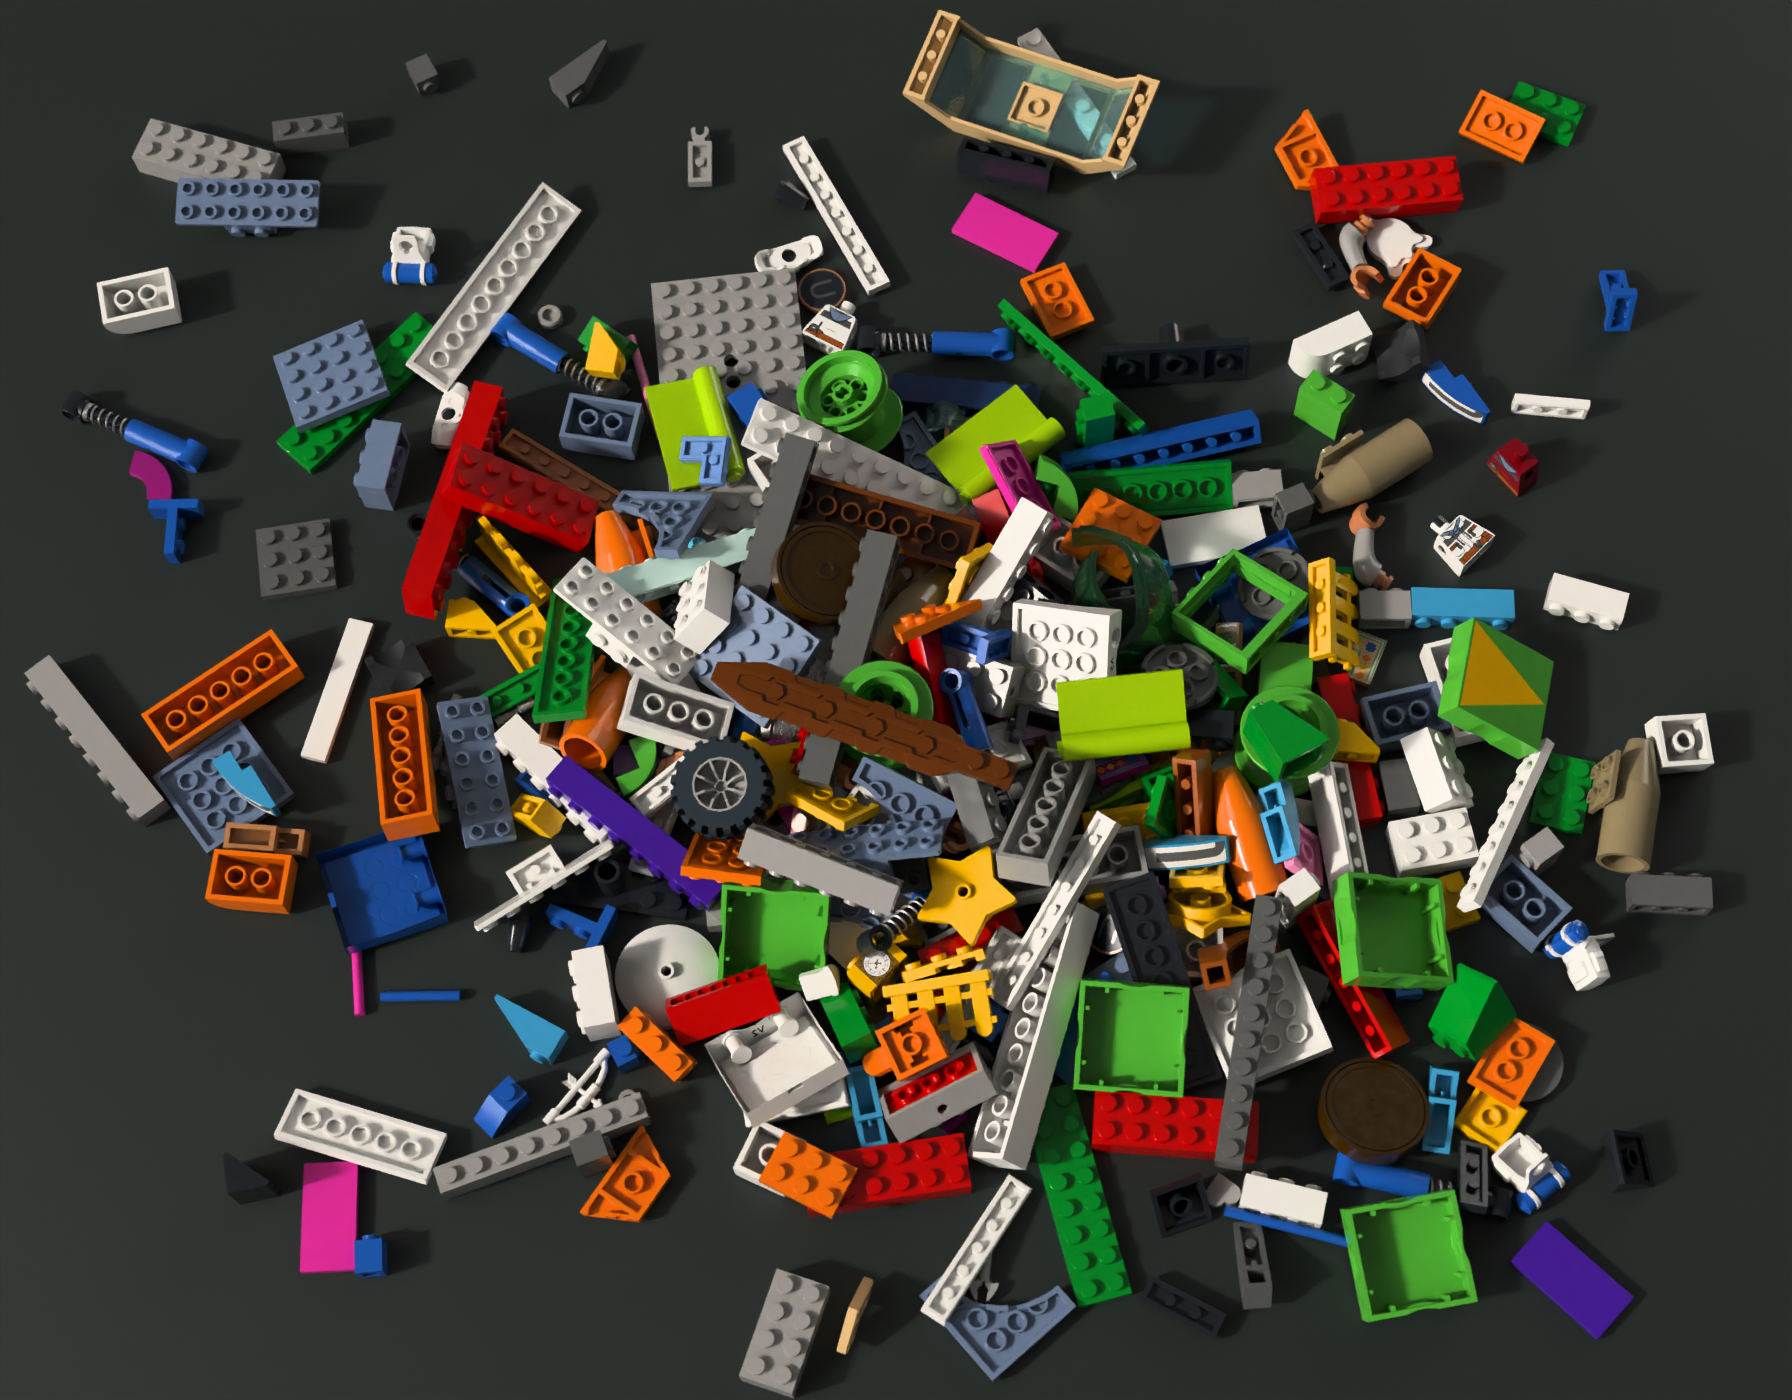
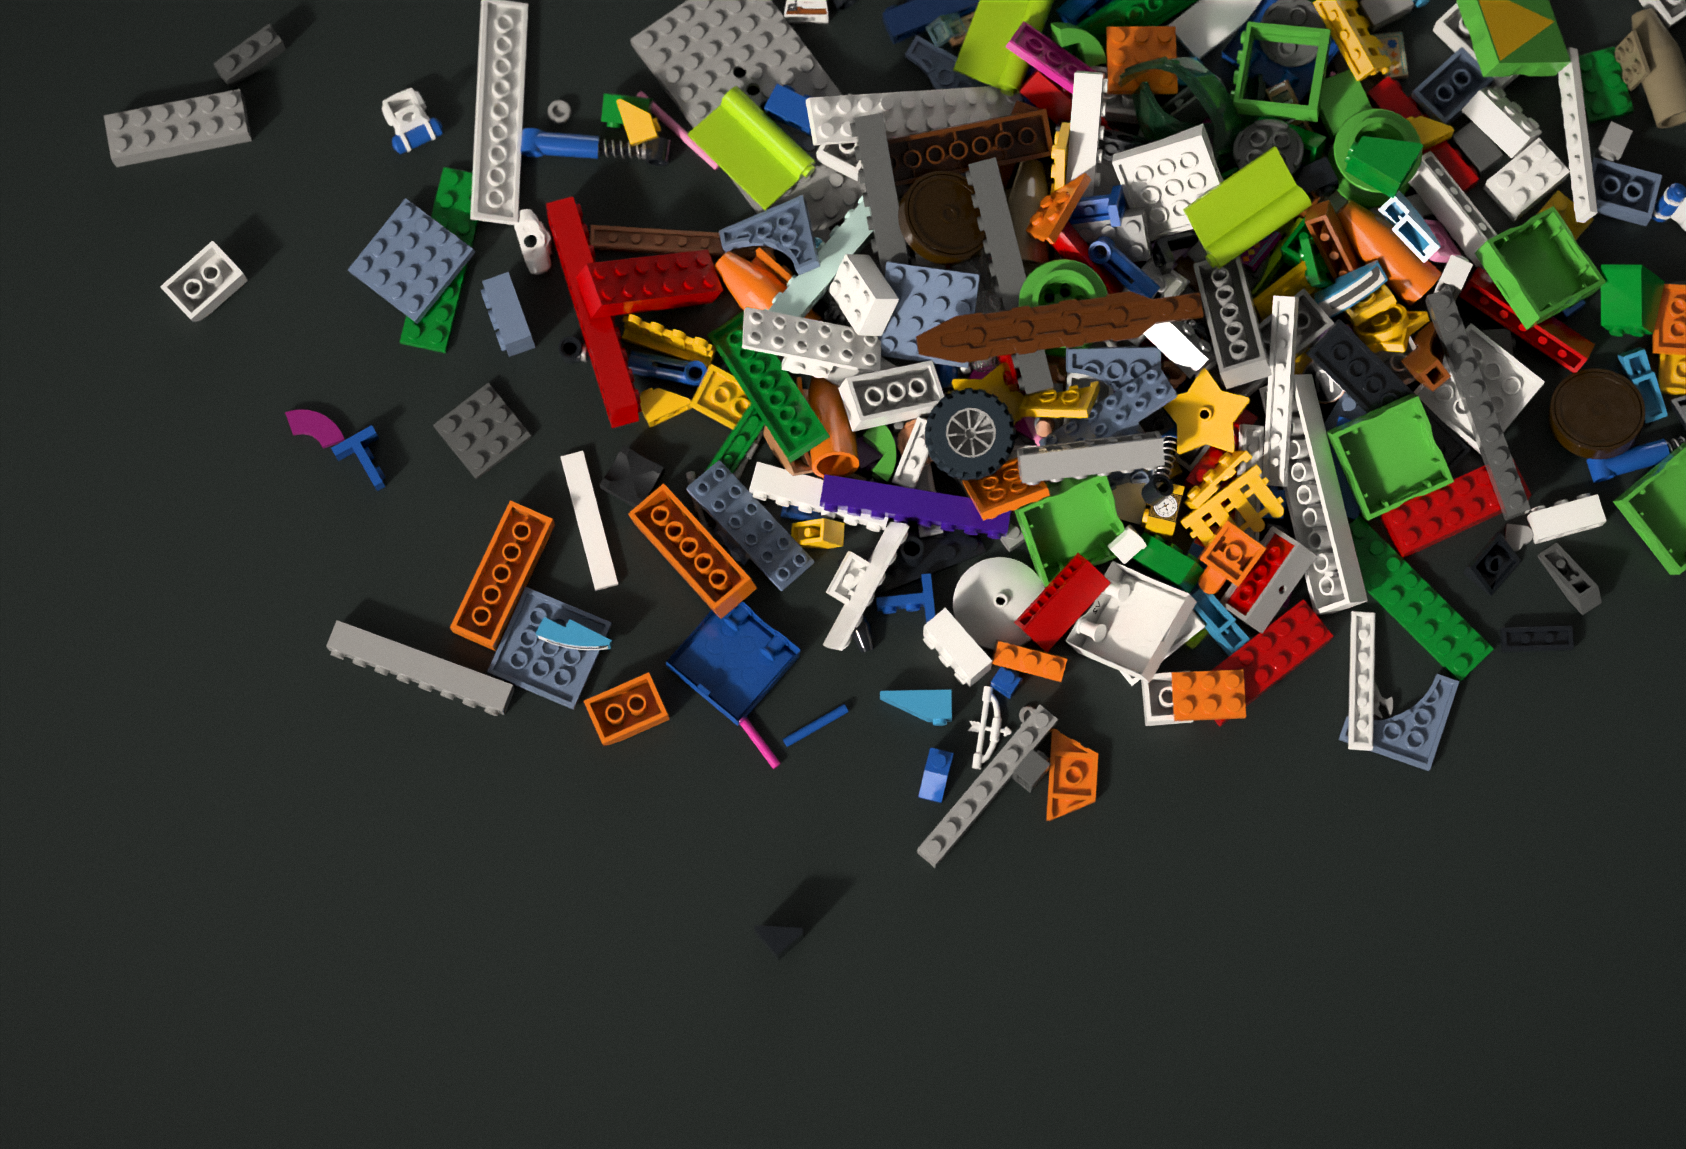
camera: 30 degrees left, 10 degrees up
(186, 453) = (331, 392): piece -> none
(248, 204) = (242, 148): sand blue bracket -> none
(267, 839) = (615, 671): medium nougat slope -> none
(329, 1217) = (855, 930): dark pink tile -> none
(360, 1136) = (841, 857): white plate -> none
(370, 1257) = (908, 941): blue brick -> none
(602, 426) = (668, 184): sand blue brick -> none
(711, 453) = (780, 161): medium blue tile -> none
(785, 1333) = (1256, 821): light grey brick -> none
(851, 398) = (861, 38): bright green wheel -> none
(853, 1315) = (1303, 779): tan tile -> none
(1285, 1225) = (1577, 536): blue axle -> none

